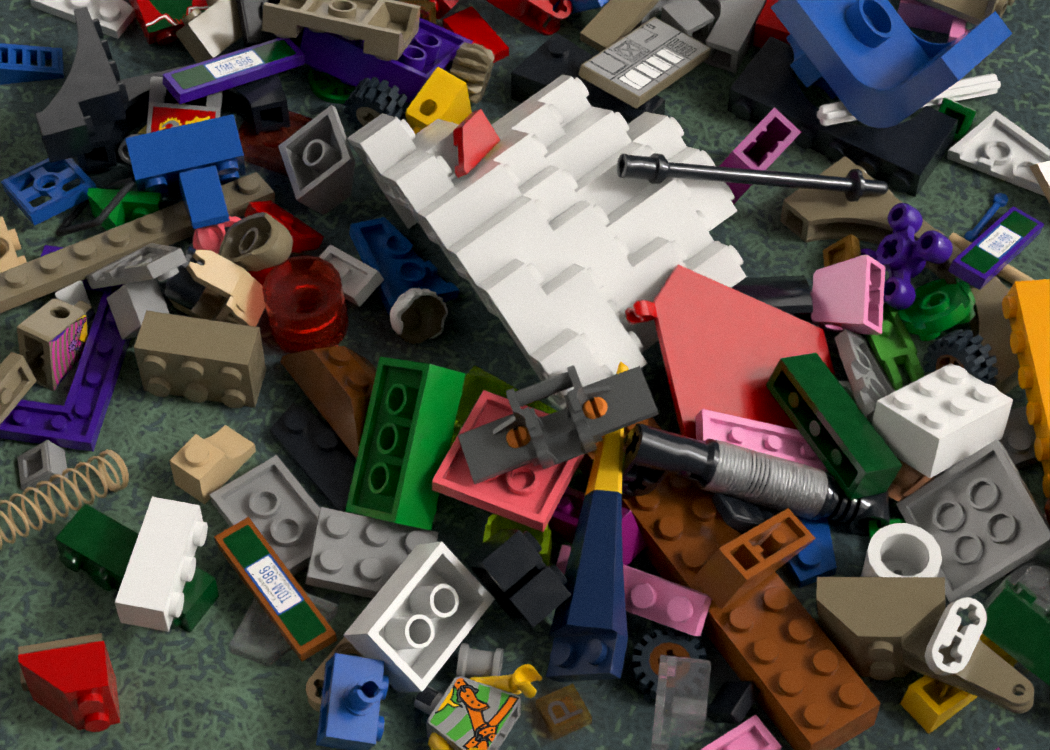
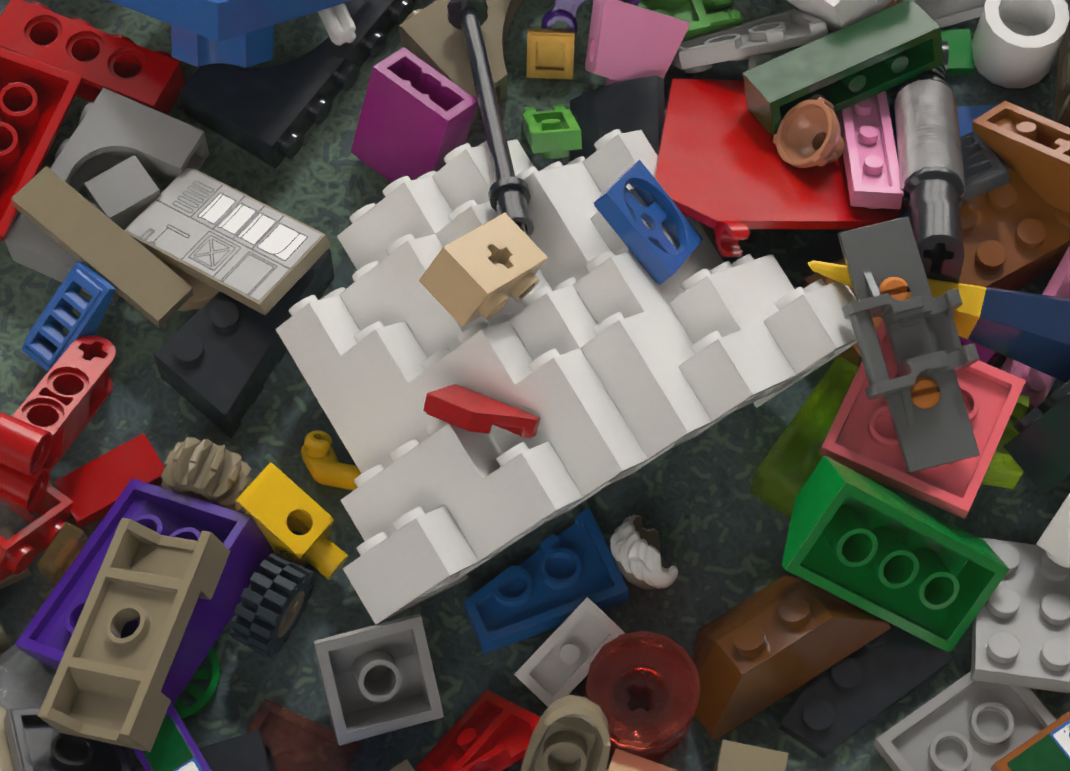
camera: 90 degrees left, 10 degrees up
(598, 144) = (484, 270): none -> tan brick
(601, 249) = (648, 245): none -> blue piece
(759, 243) = (552, 131): none -> bright green hinge
(759, 398) = (809, 135): none -> nougat piece

